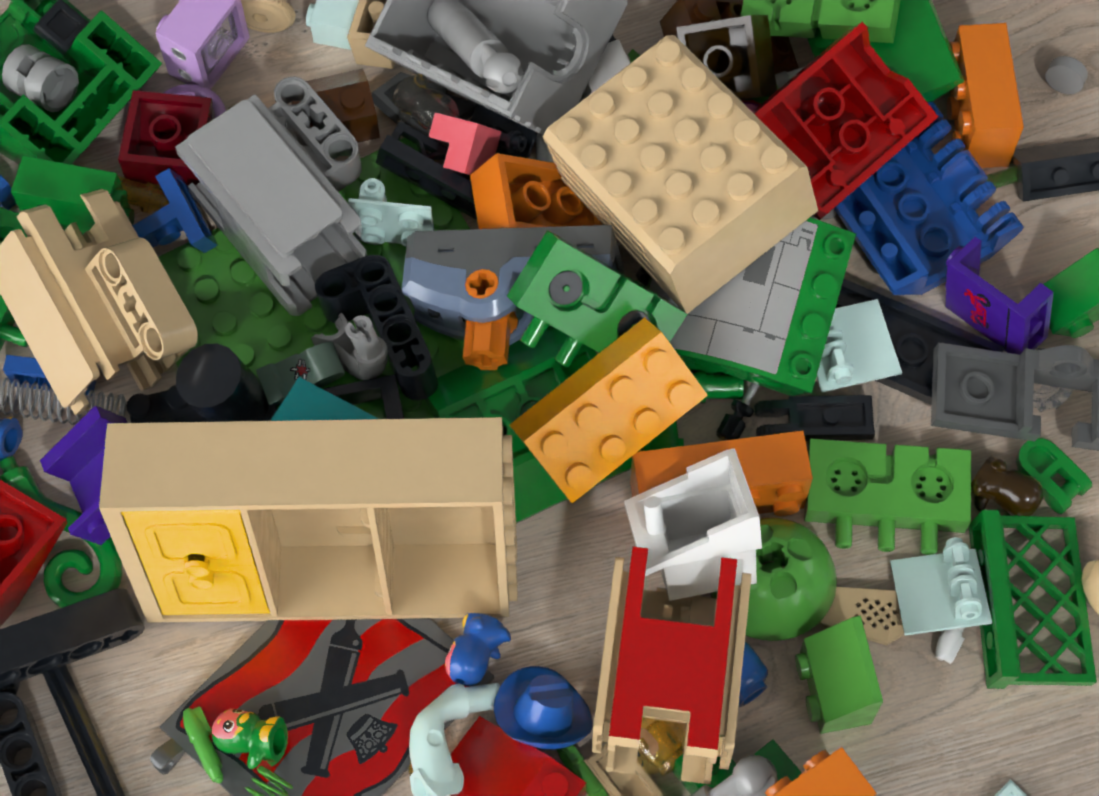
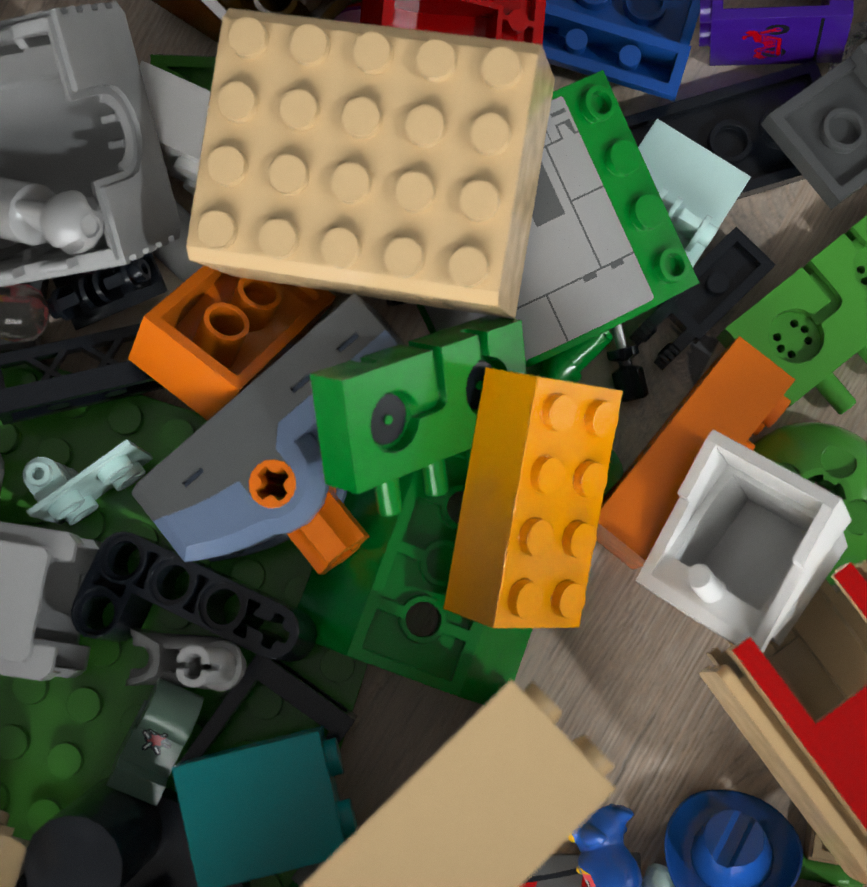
camera: 45 degrees left, 15 degrees up
(468, 142) = (90, 319): coral piece -> none

